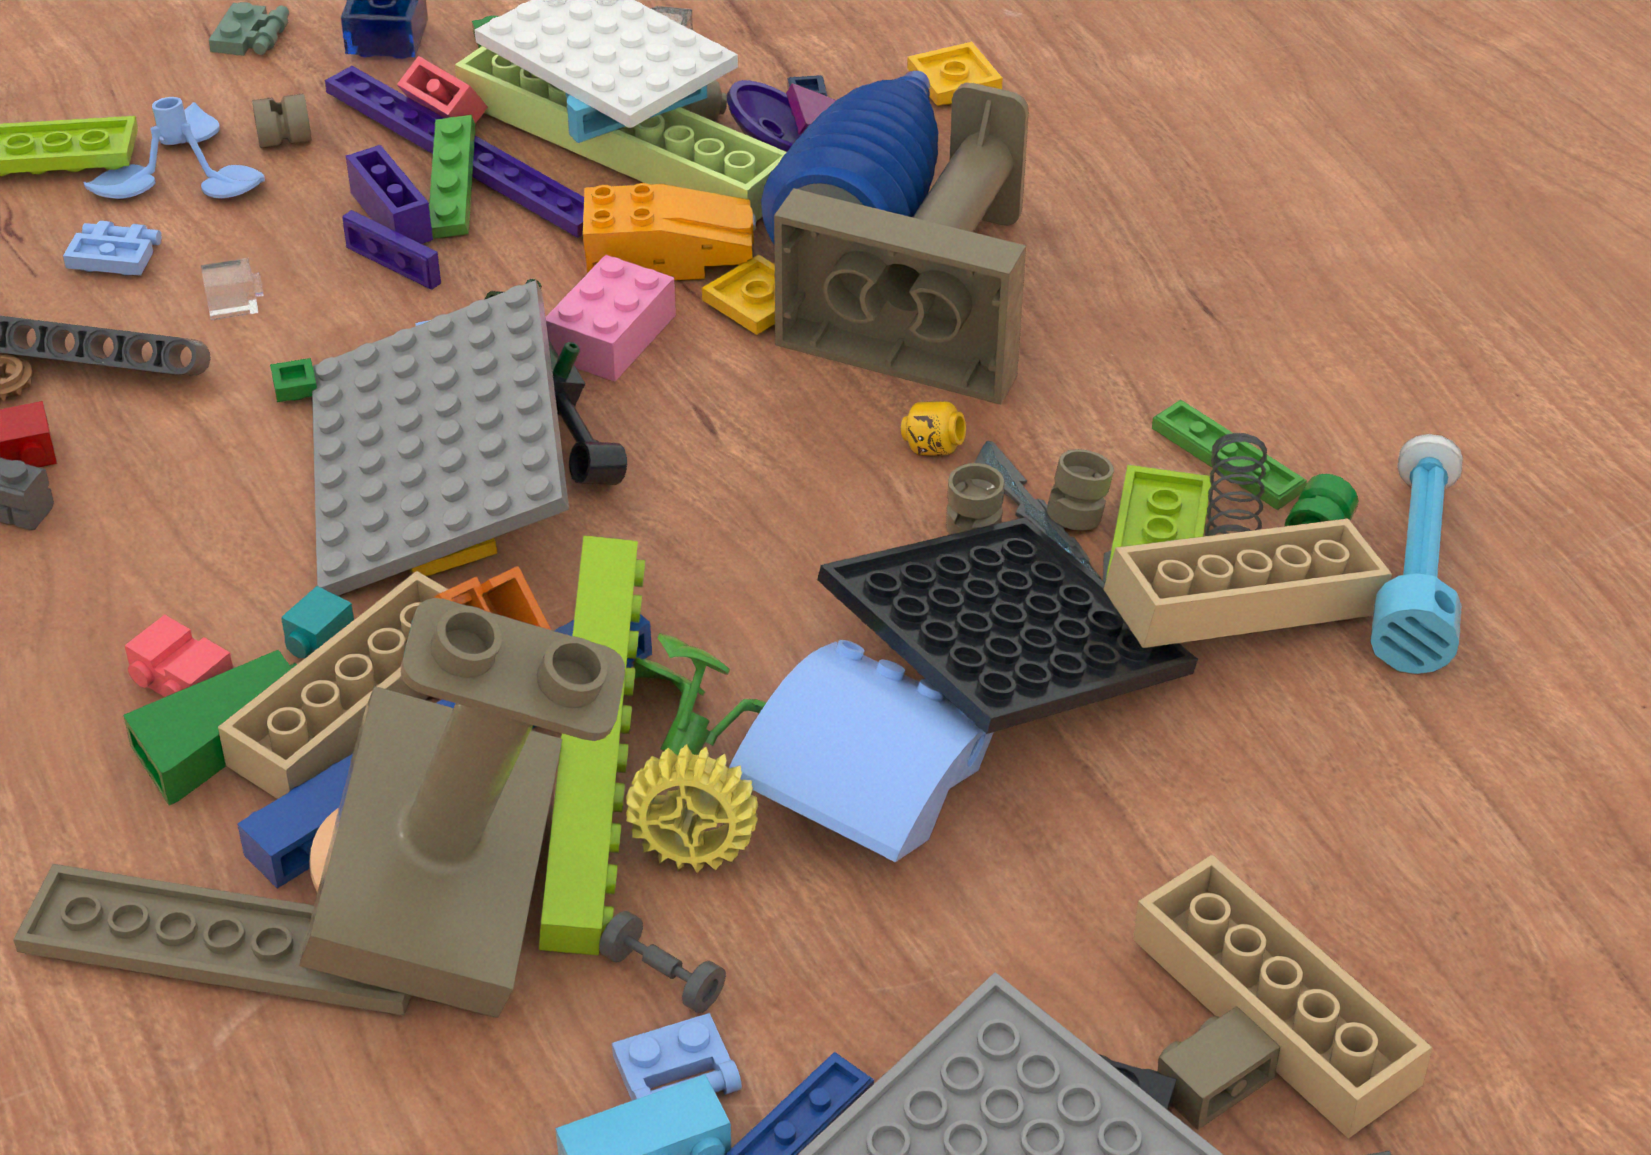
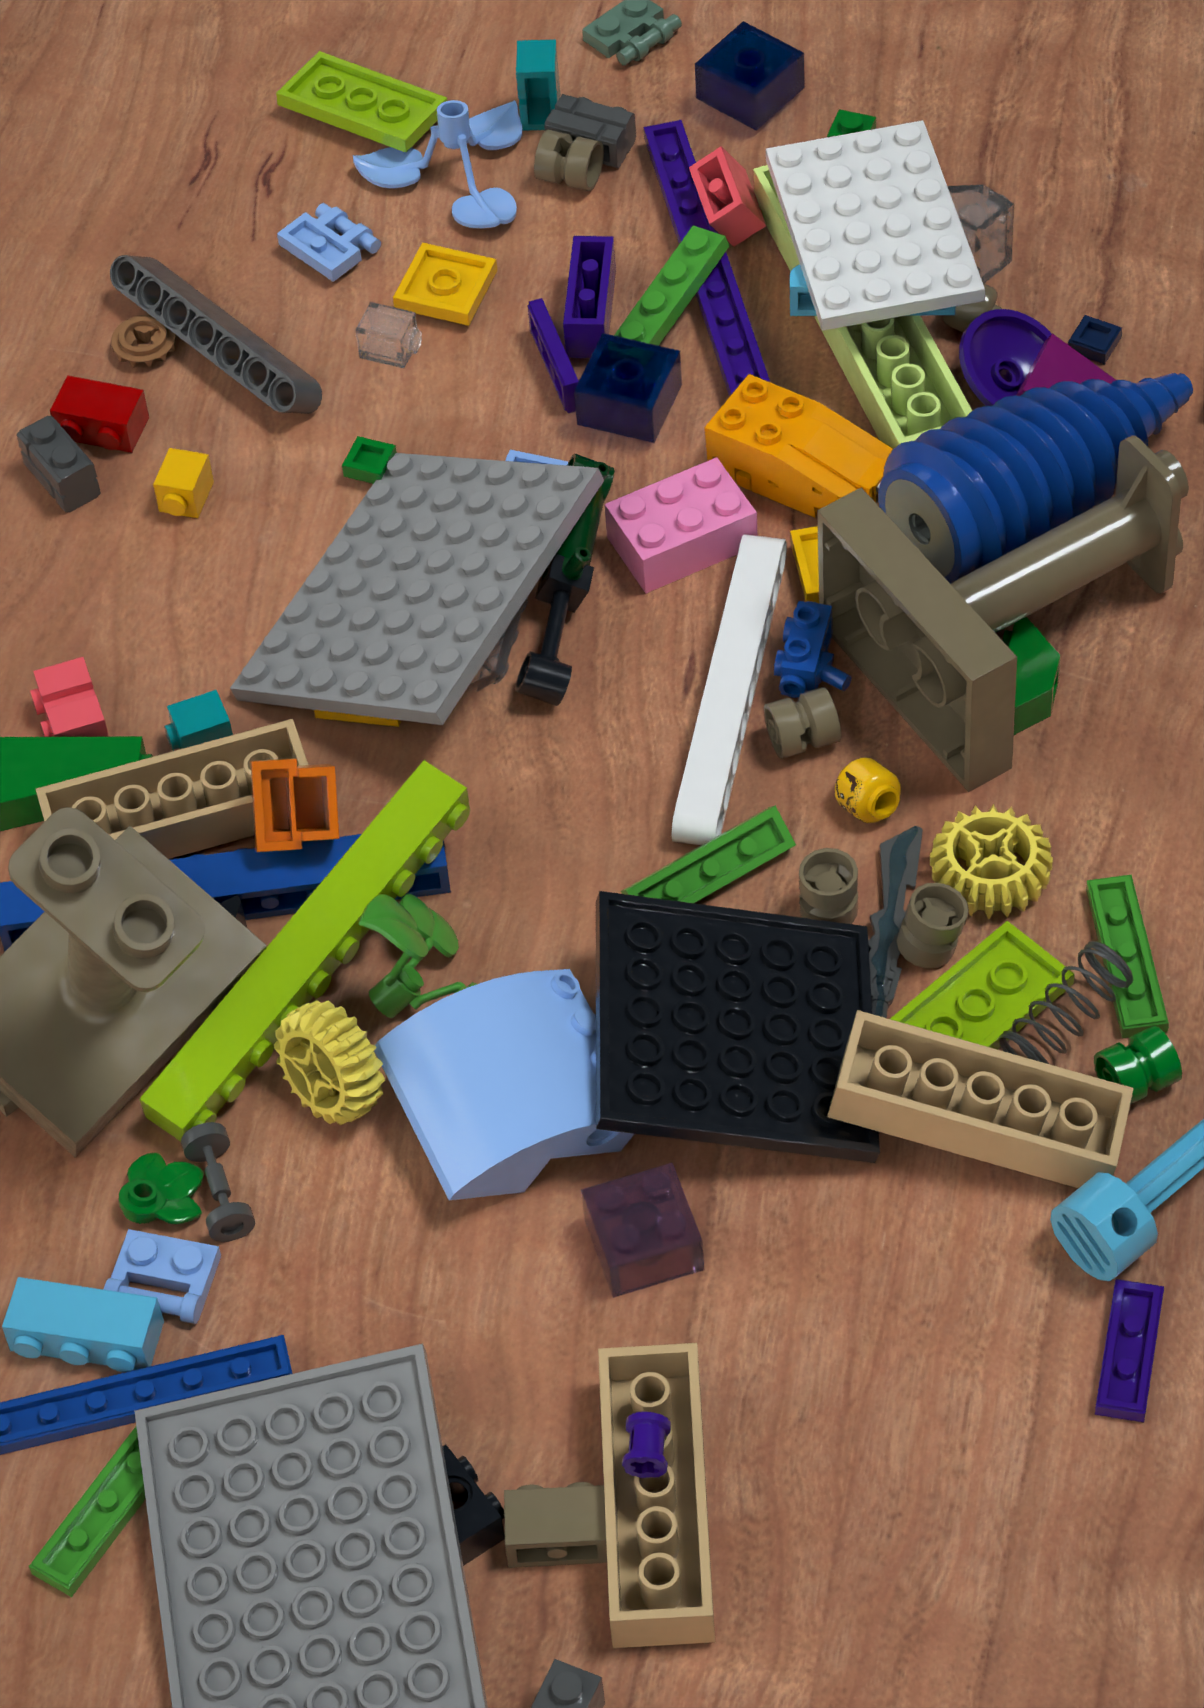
camera: 40 degrees right, 10 degrees up
(136, 458) = (183, 483): none -> yellow brick
(214, 76) = (537, 81): none -> teal piece
(249, 234) = (445, 283): none -> yellow plate
(279, 85) = (595, 121): none -> dark grey brick
(480, 243) = (628, 387): none -> clear blue brick
(611, 999) = (160, 1191): none -> green plate
(759, 414) = (729, 690): none -> white beam
(798, 358) = (806, 653): none -> blue brick
(839, 405) = (802, 722): none -> dark tan wheel
(865, 521) = (718, 860): none -> bright green plate
(1066, 808) = (643, 1229): none -> clear purple brick
(1069, 423) = (988, 845): none -> light yellow gear
(1261, 943) = (646, 1444): none -> dark purple bush
(1504, 708) = (1129, 1350): none -> dark purple tile

